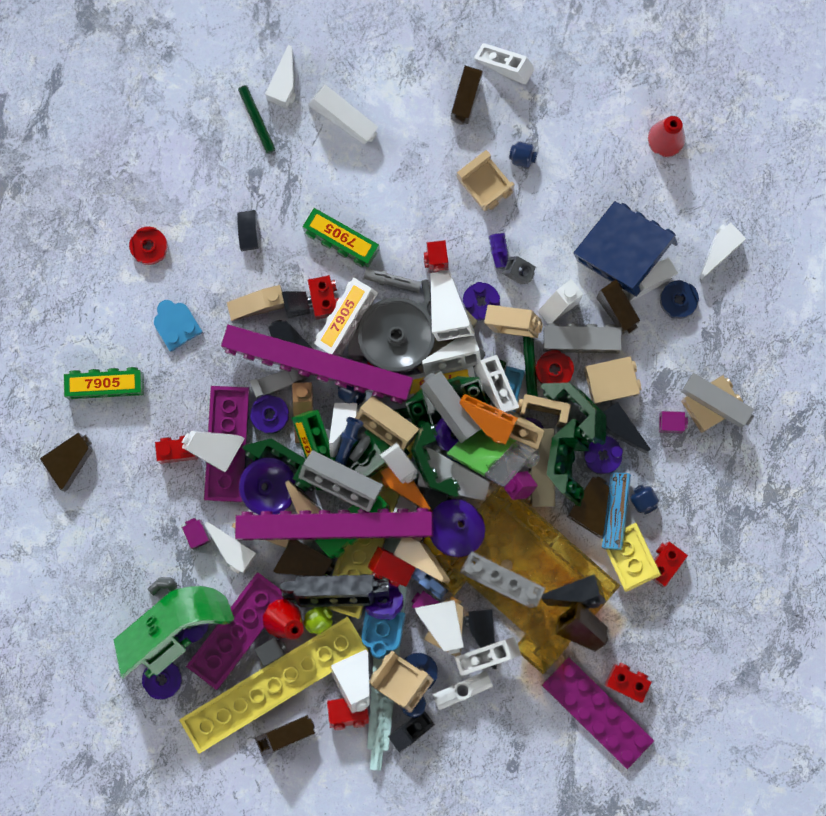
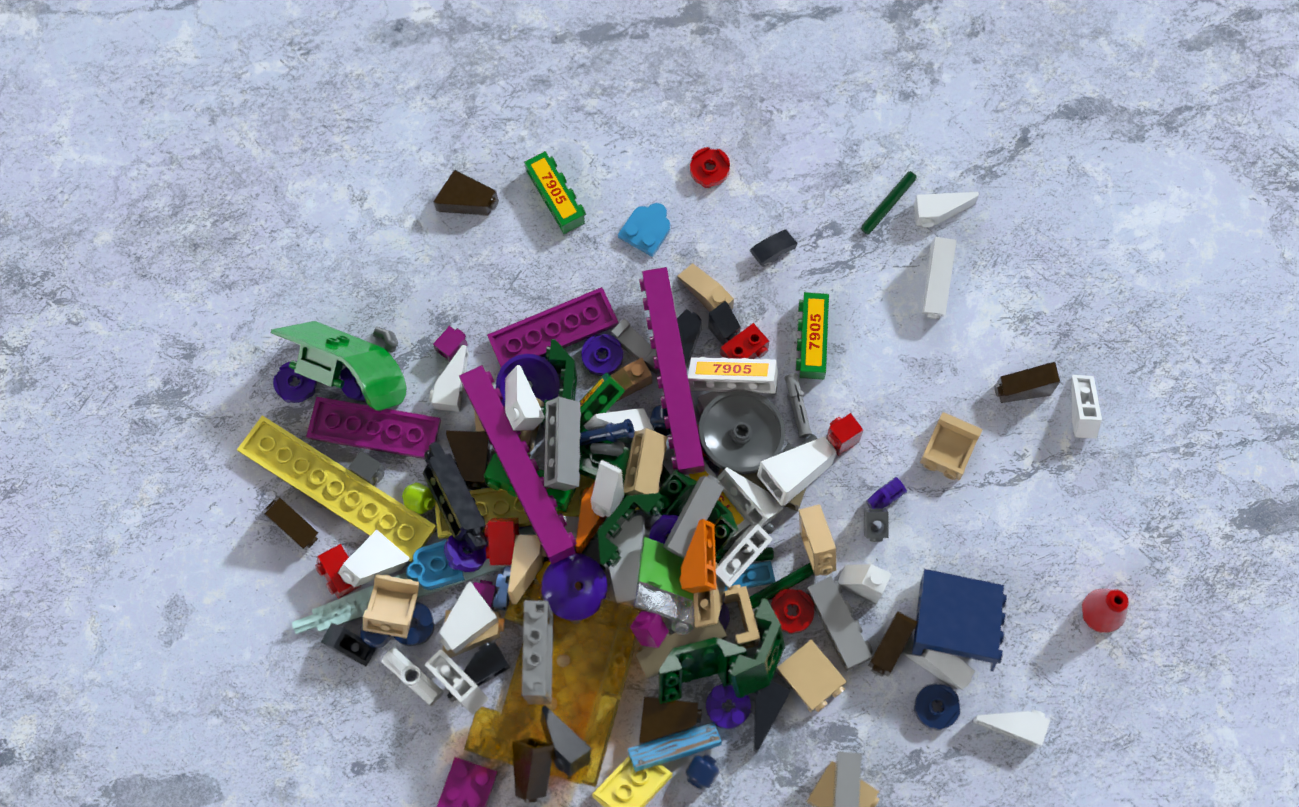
camera: 65 degrees right, 10 degrees down
(172, 451) = (523, 287): red brick -> none
(213, 448) = (540, 314): white slope -> none
(283, 498) = (521, 402): none -> white slope
(283, 619) = (403, 464): red cone -> none
(480, 290) = (832, 493): dark purple plate -> none
(523, 154) = (999, 470): dark blue head -> none
(672, 422) = (800, 762): magenta brick -> none

